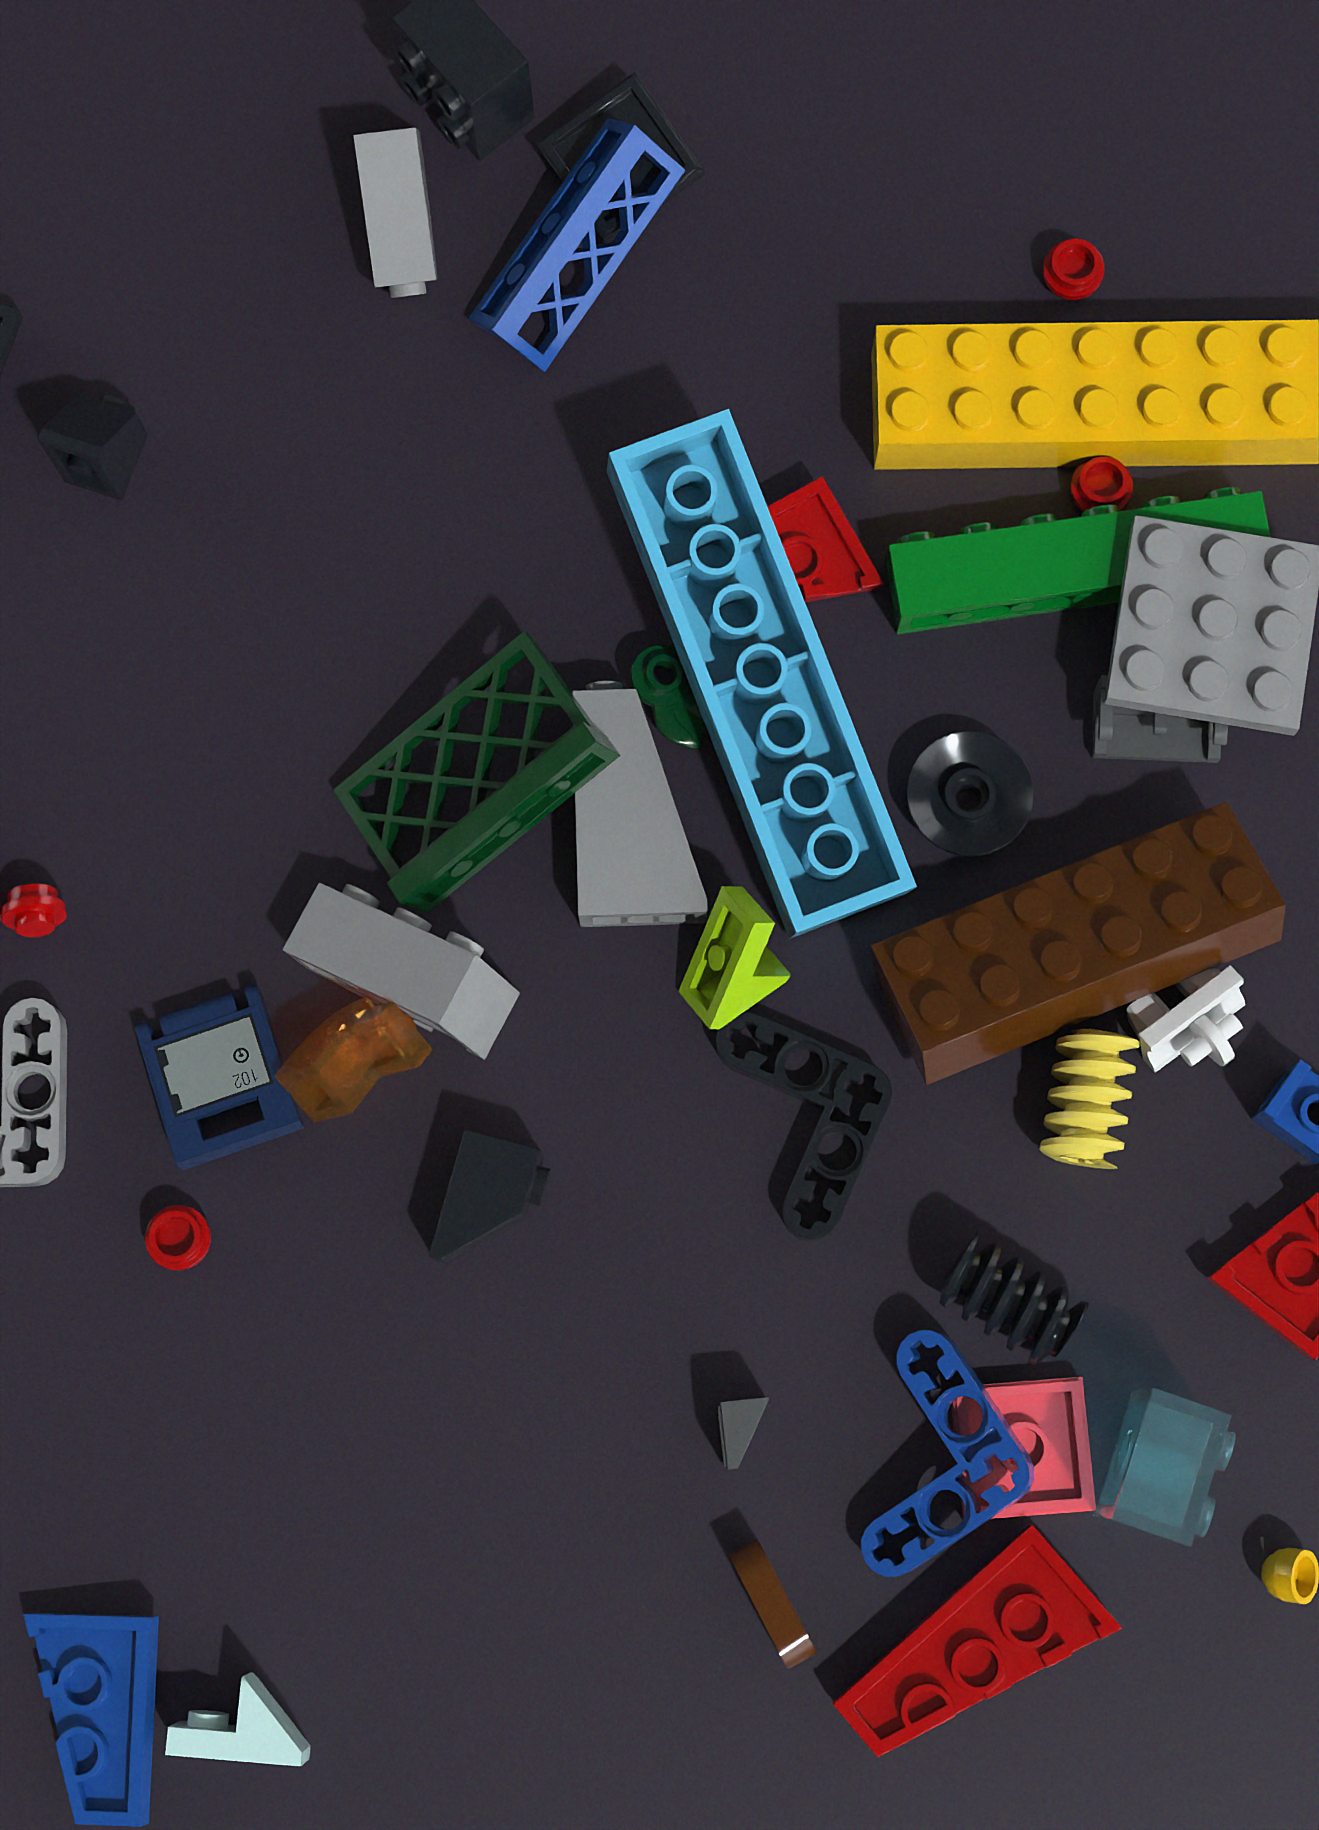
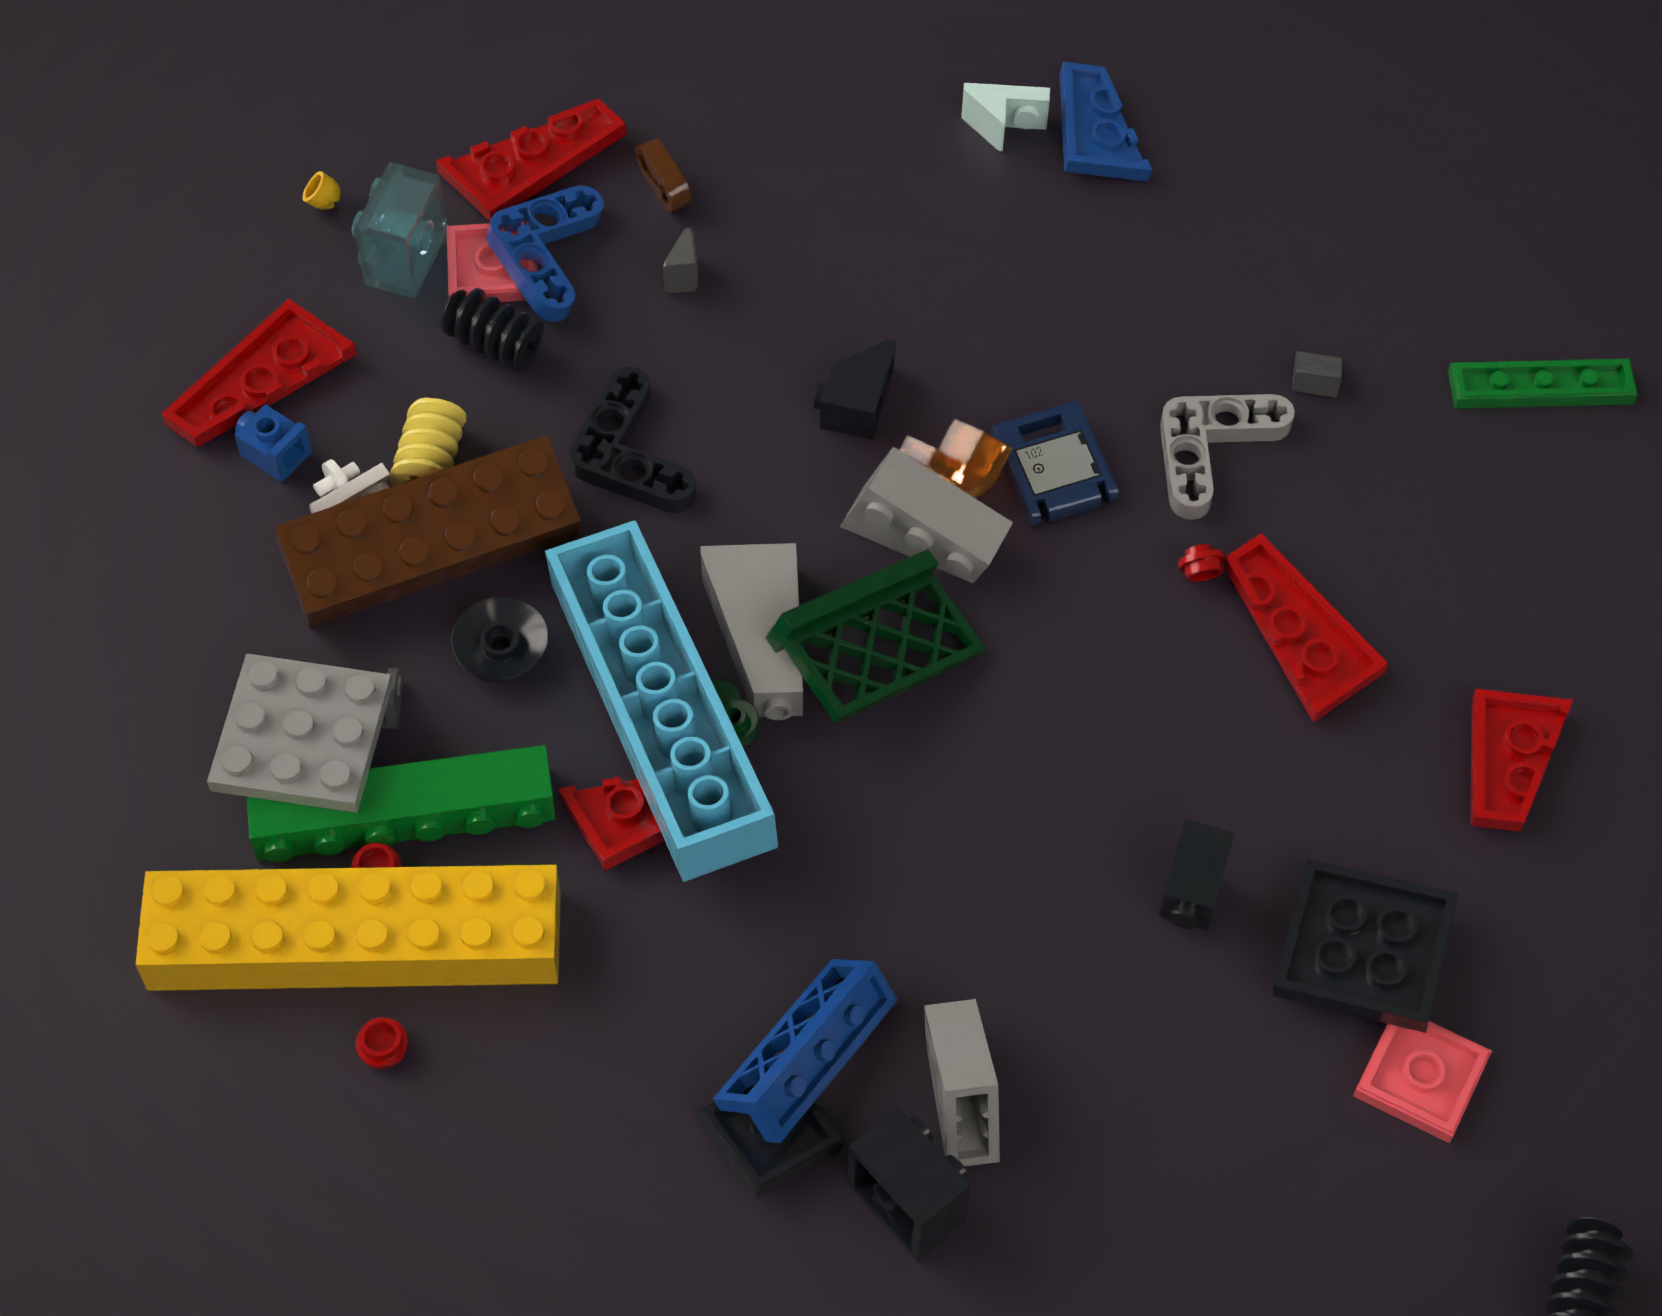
camera: 175 degrees right, 20 degrees down
(178, 1237) = (1073, 371): red plate -> none
(731, 961) = (681, 523): lime slope -> none

